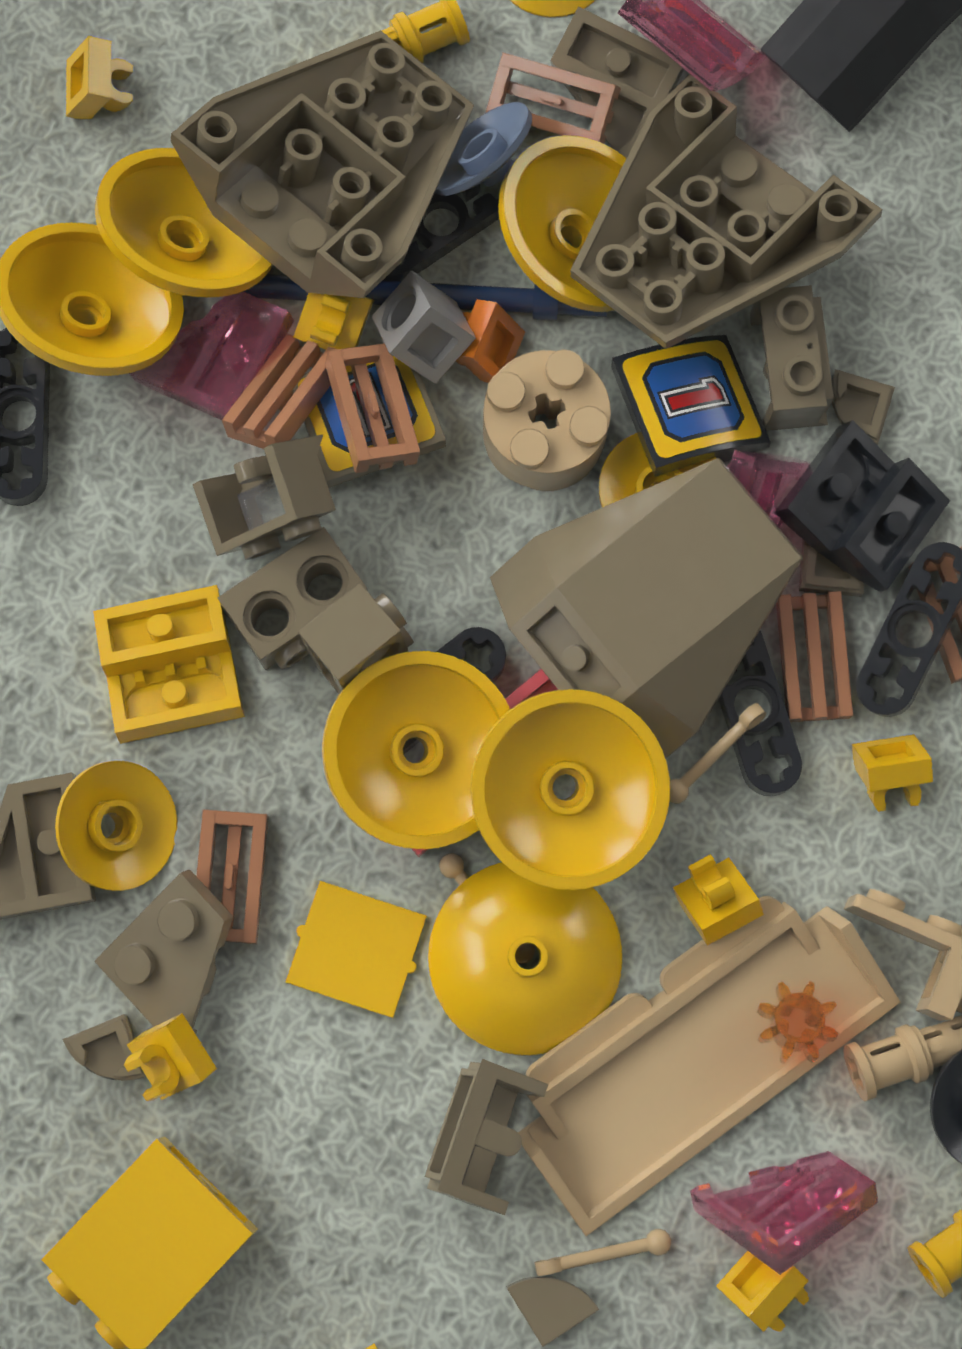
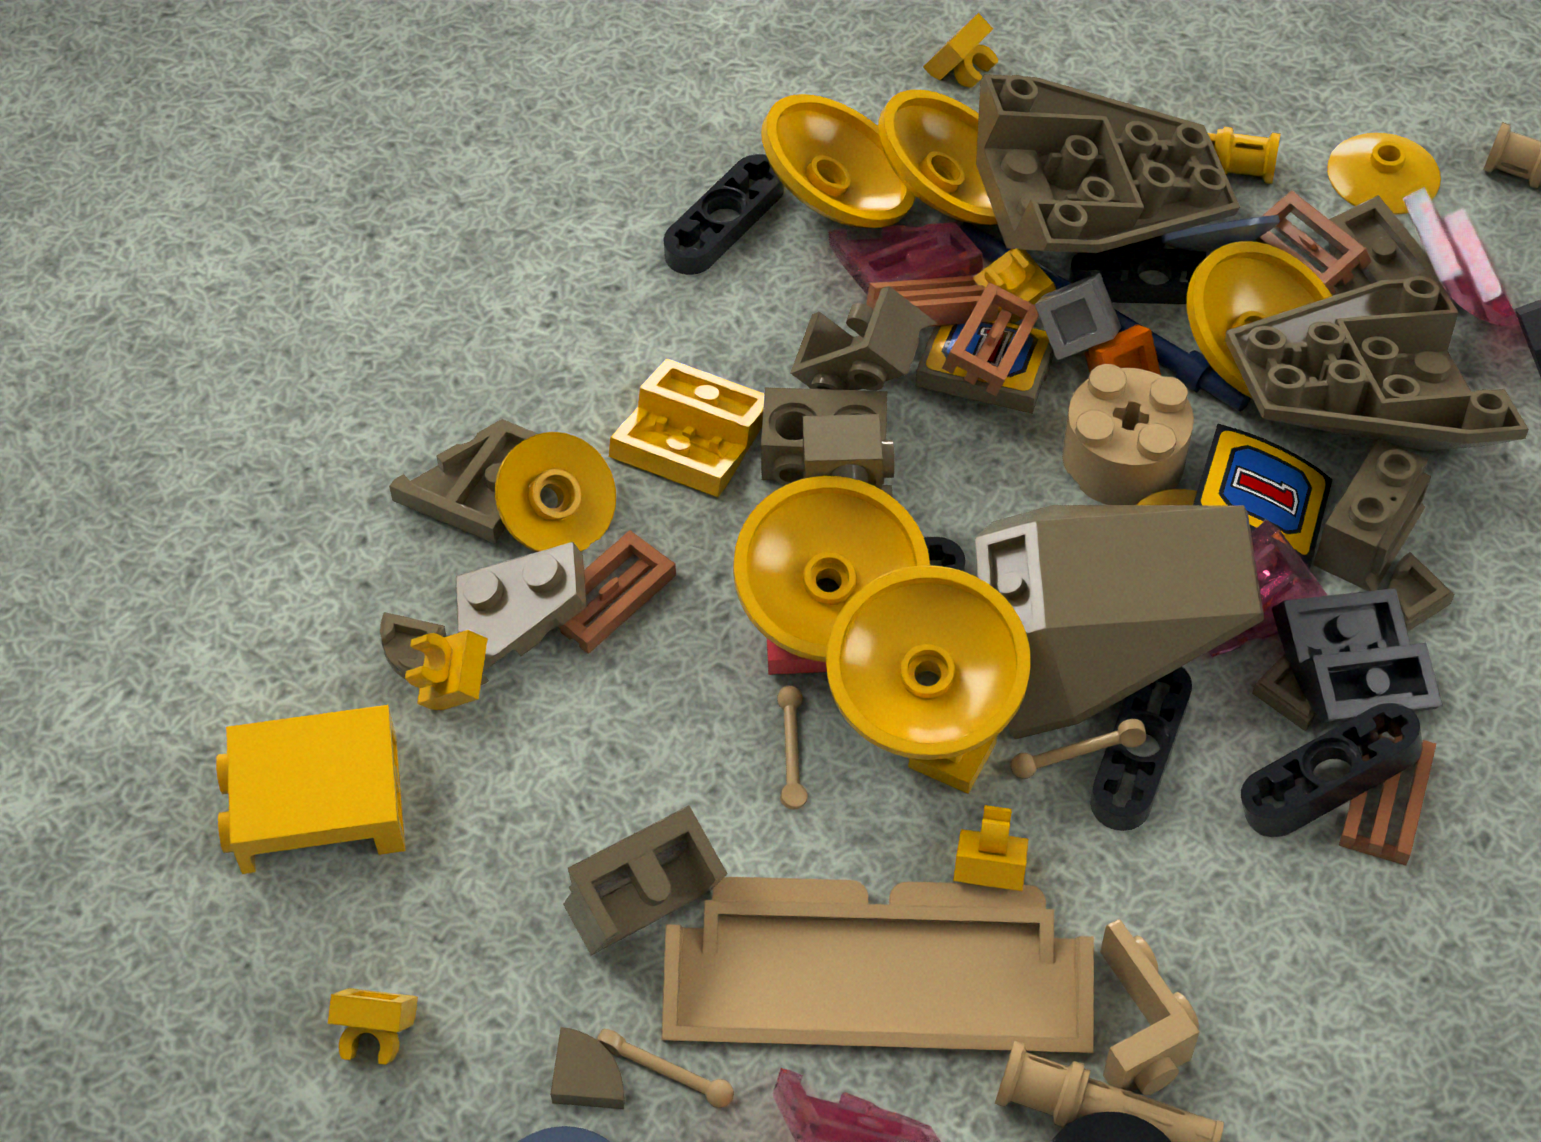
camera: 40 degrees right, 25 degrees down
(356, 949) = (662, 707): yellow piece -> none
(486, 988) = (801, 831): yellow dish -> none
(810, 604) = (1249, 705): nougat tile -> none
(814, 1018) = (982, 986): clear orange gear -> none
(891, 765) = (1229, 859): yellow tile -> none

